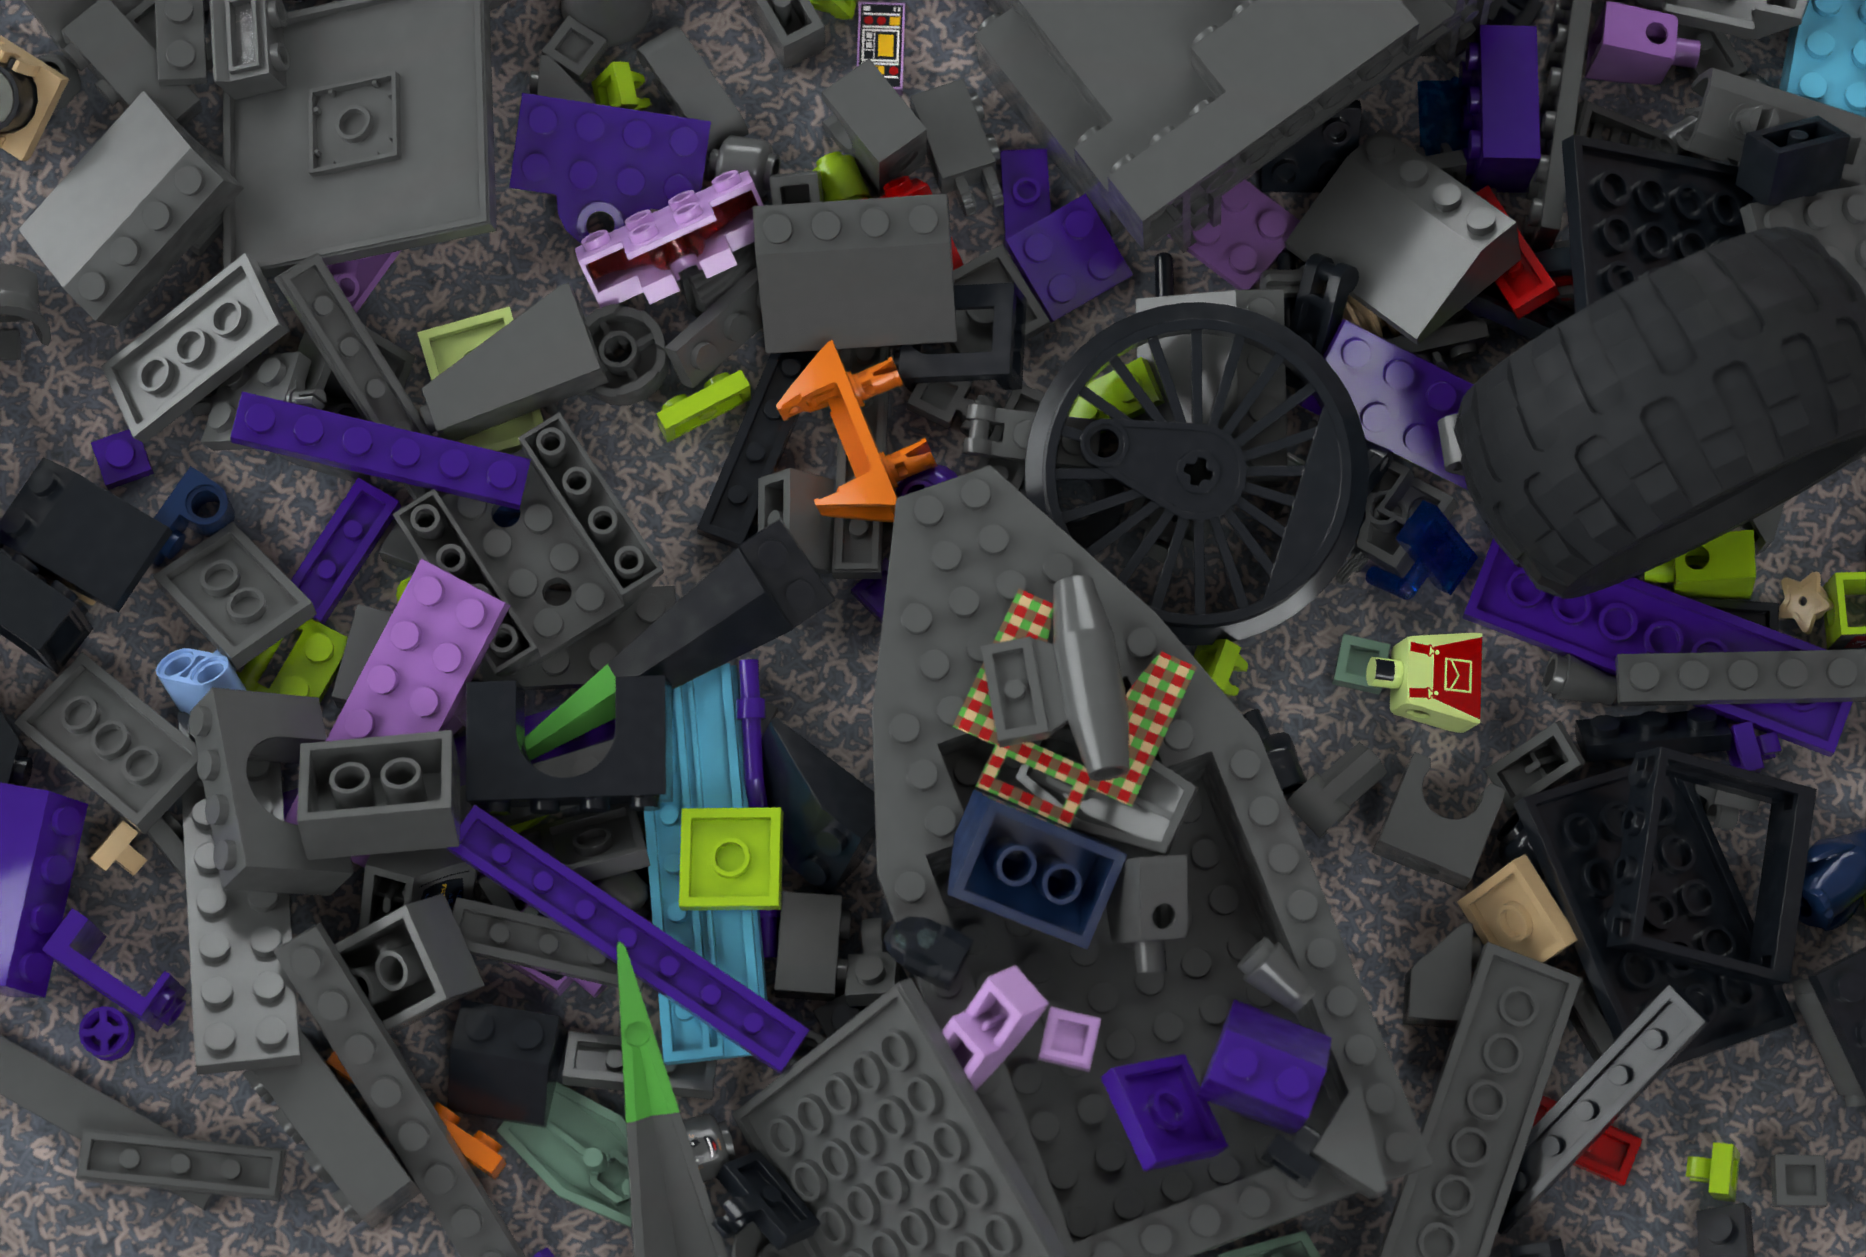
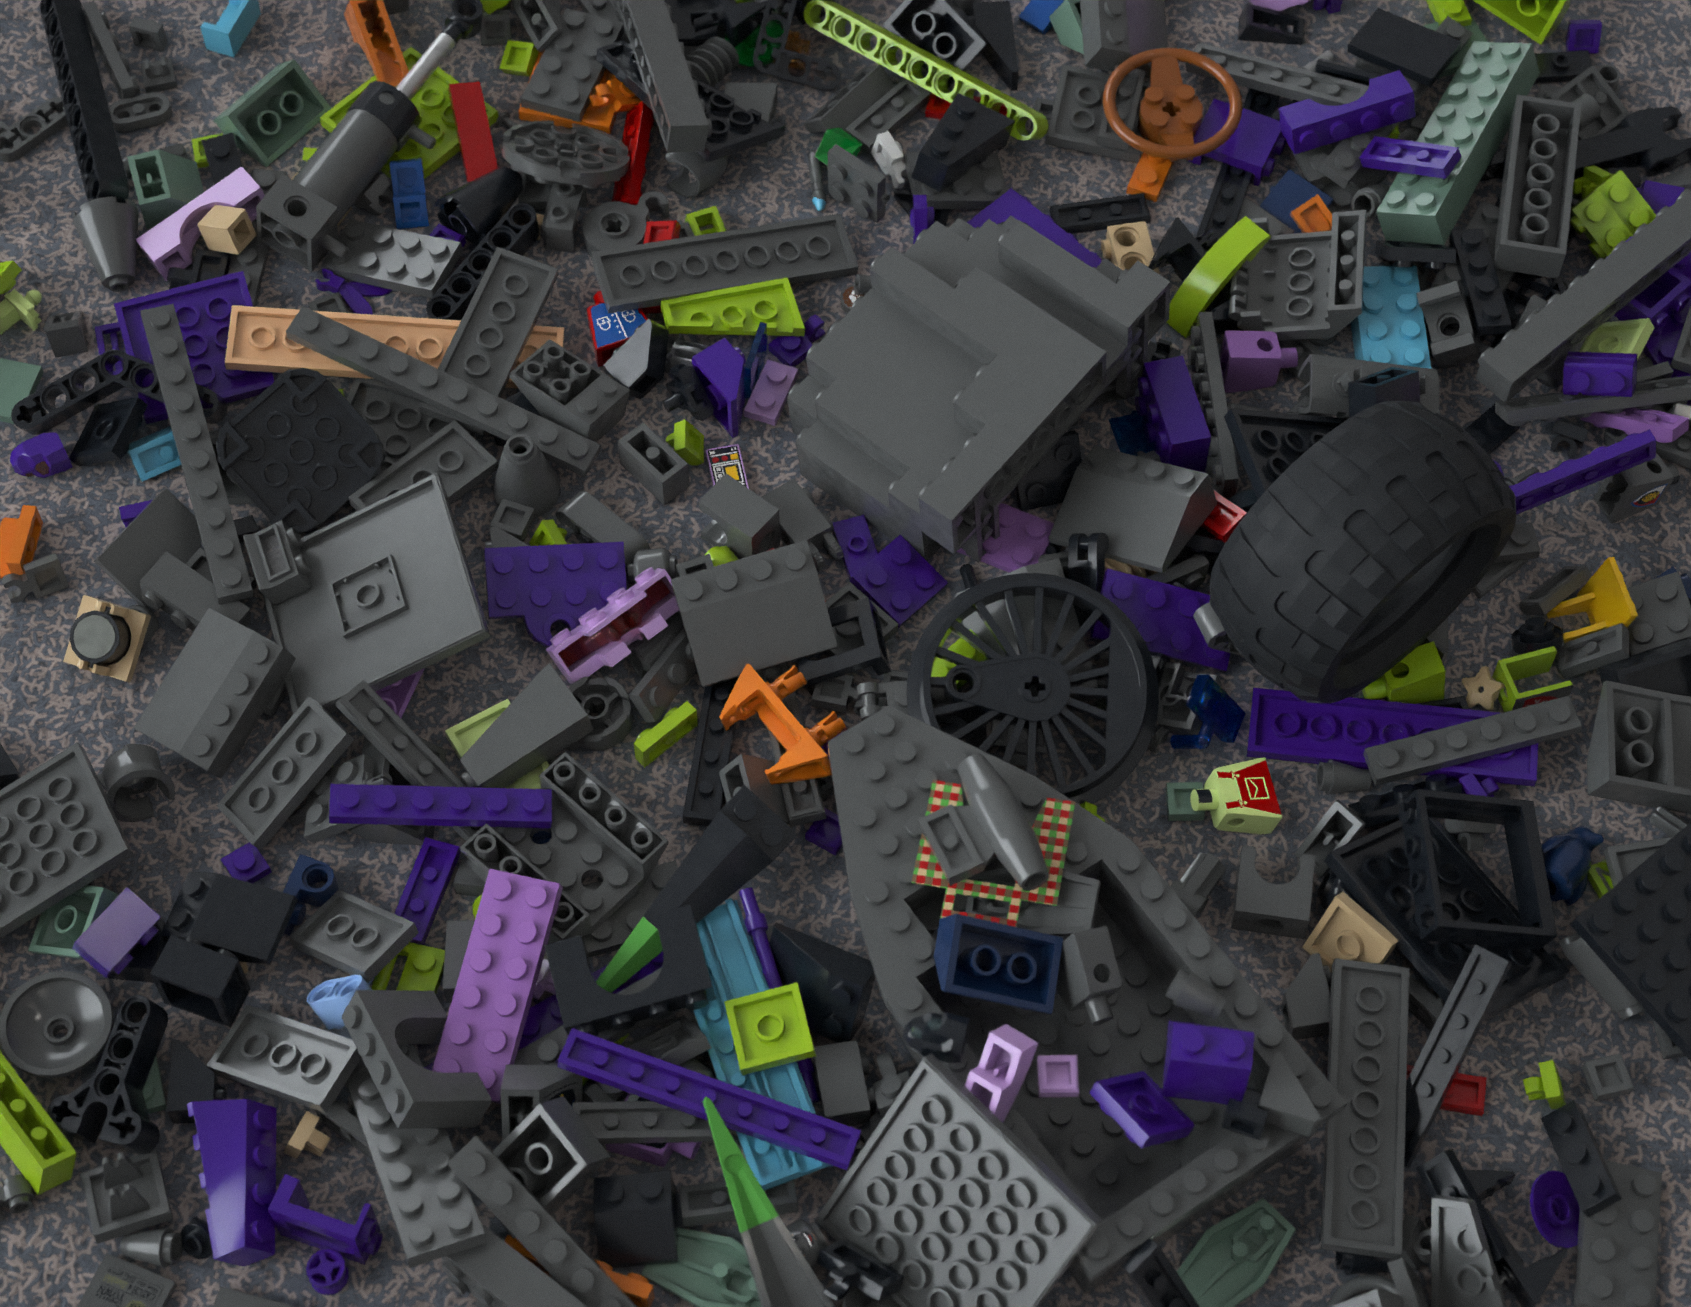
camera: 10 degrees left, 15 degrees down
(379, 795) = (500, 1034): dark grey brick -> none

